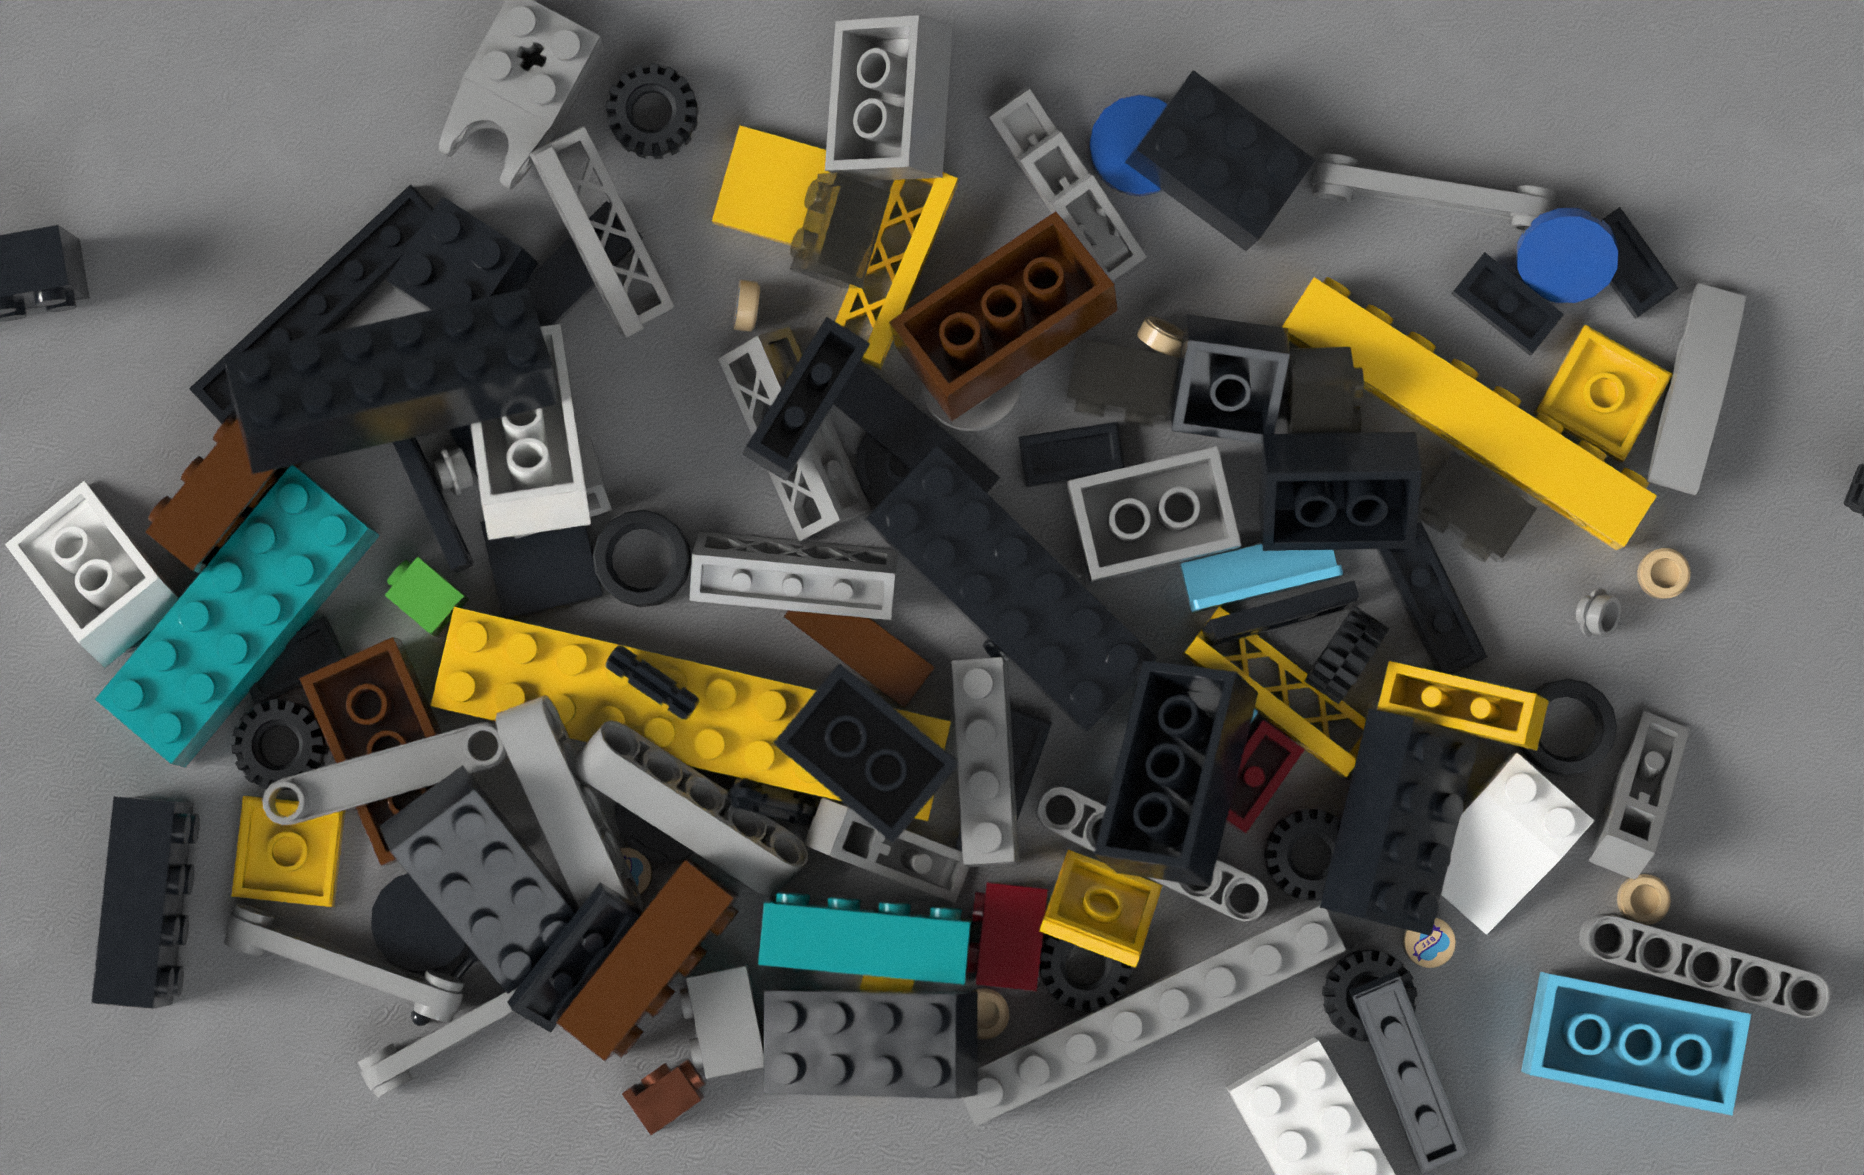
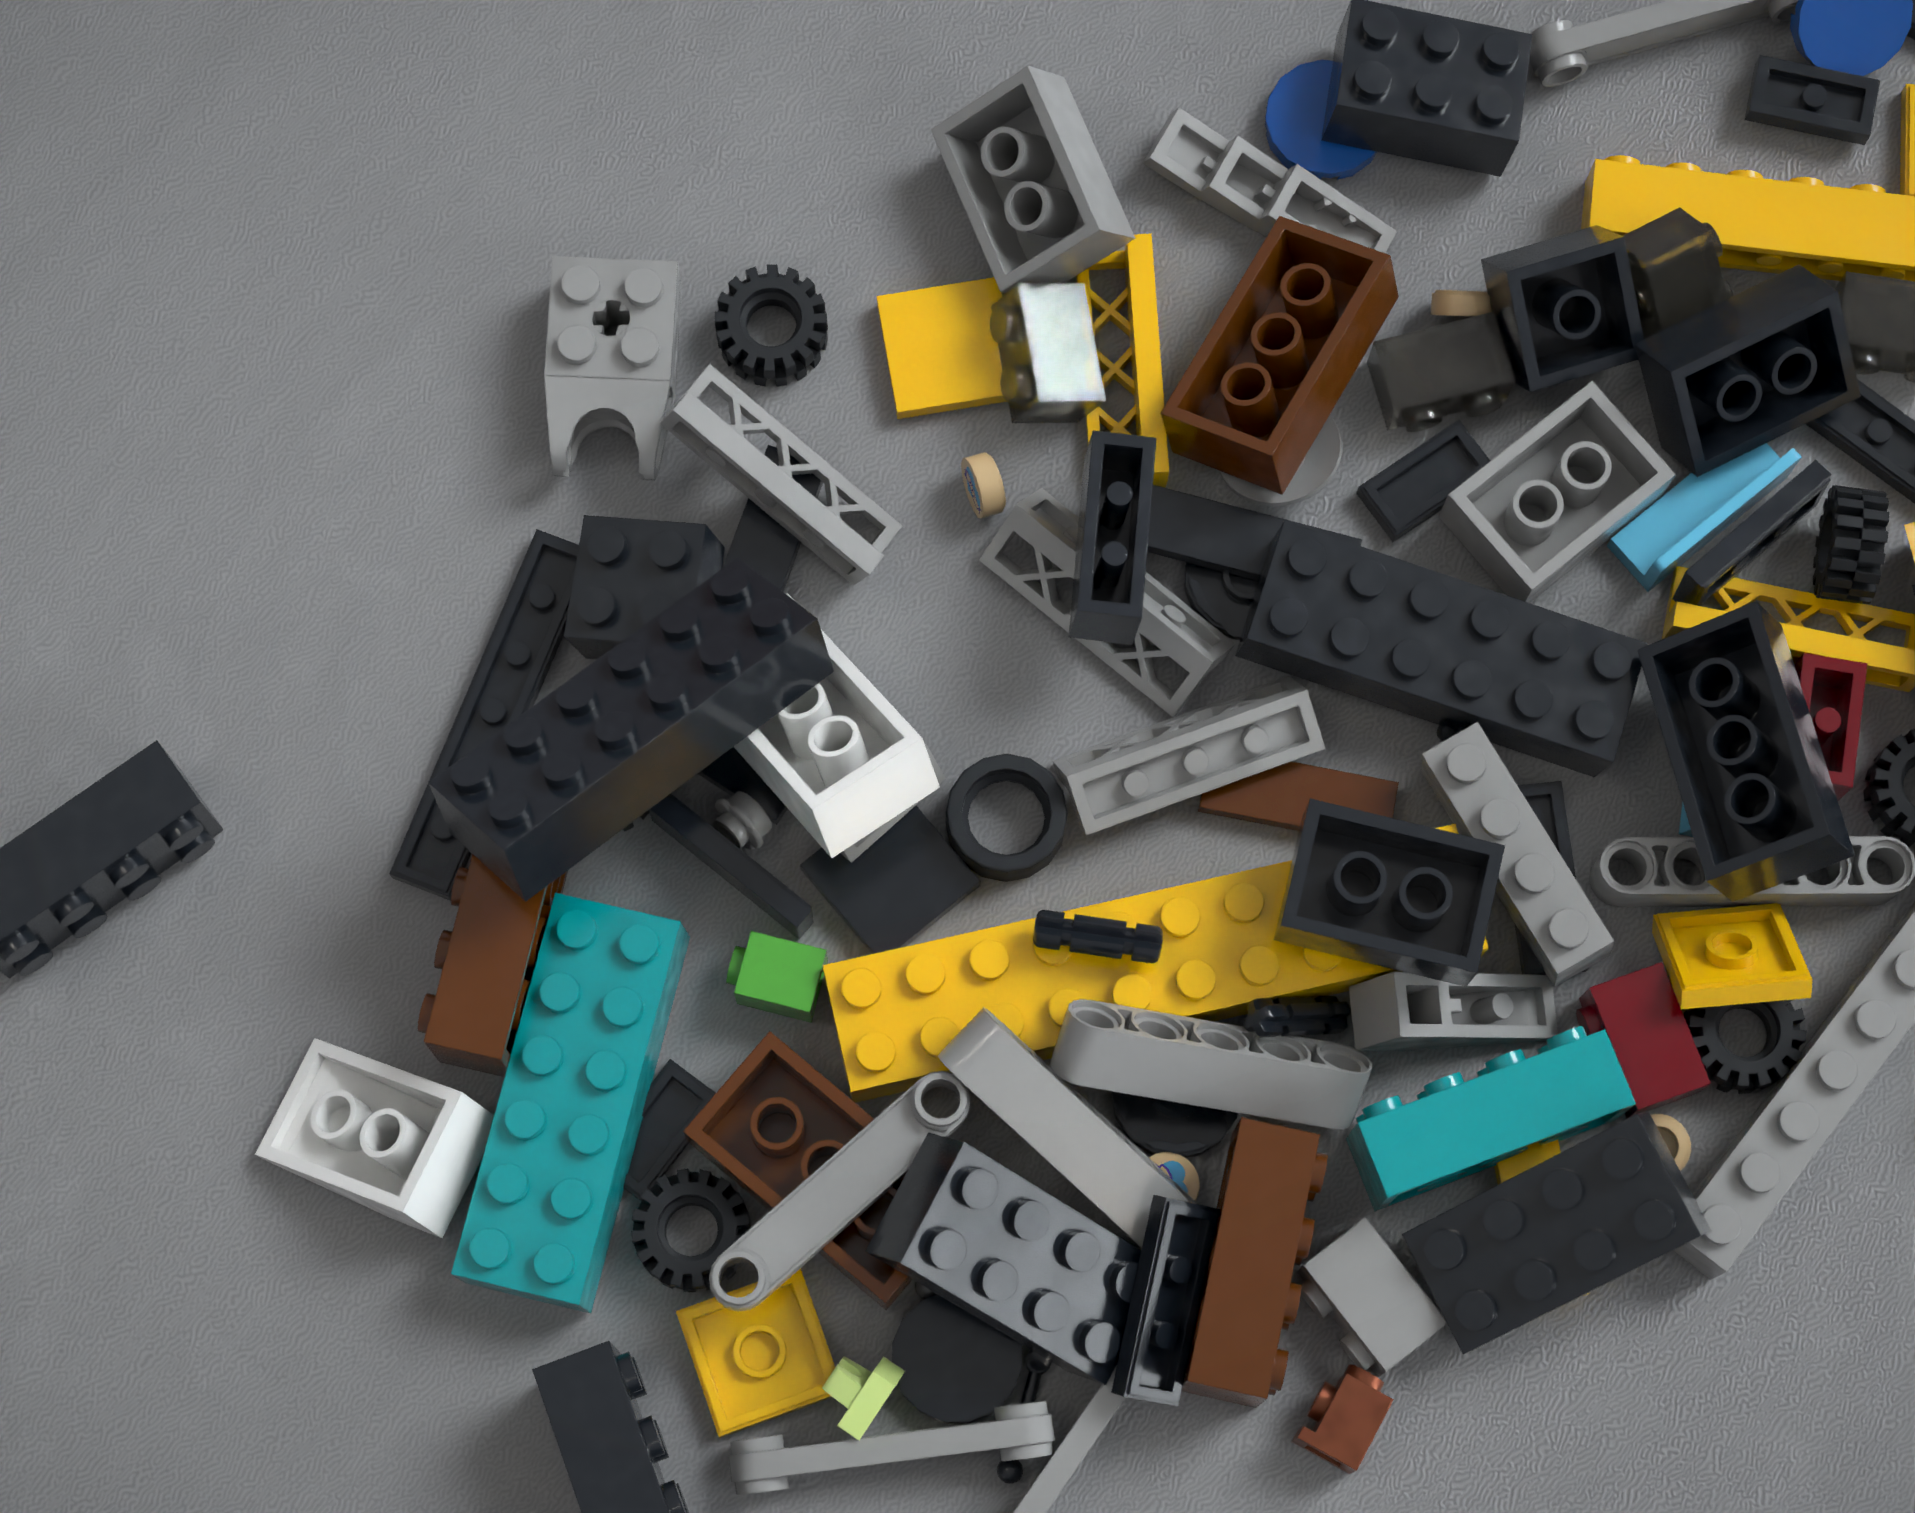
camera: 30 degrees left, 10 degrees down
(340, 915) = (861, 1391): none -> yellowish green tile

